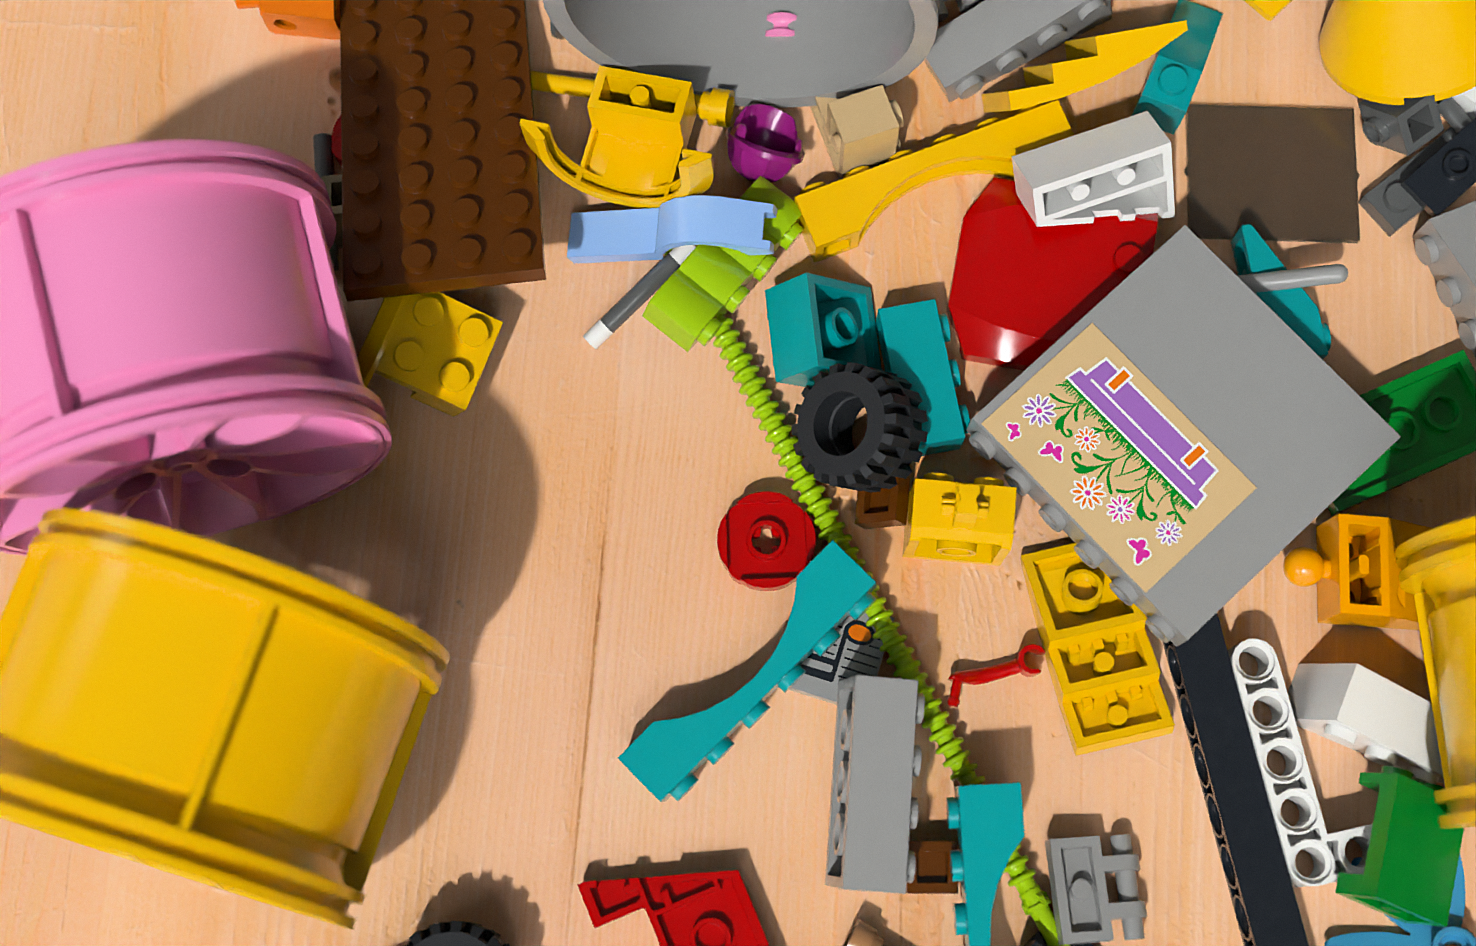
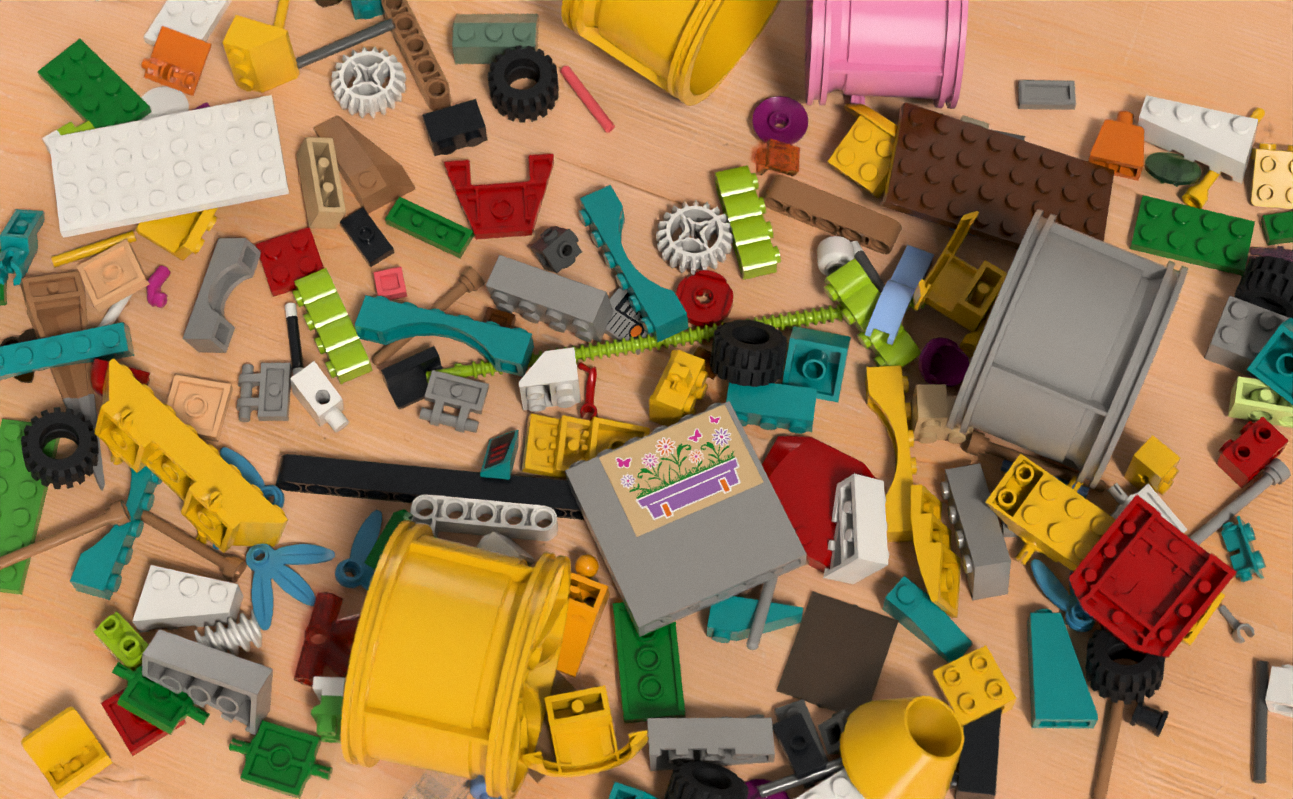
camera: 110 degrees right, 10 degrees down
(223, 111) = (1046, 94): none -> light grey tile
(383, 502) = (780, 111): none -> magenta dish
(442, 868) = (587, 99): none -> coral piece
(471, 504) = (777, 157): none -> clear orange bracket
(548, 388) = (832, 214): none -> medium nougat beam
(608, 516) = (745, 214): none -> lime brick
(626, 356) = (833, 254): none -> white head
(648, 610) = (694, 222): none -> white gear
(761, 812) = (556, 248): none -> dark grey brick
(1014, 730) = (551, 381): none -> white slope
(1170, 772) = (500, 456): none -> slope

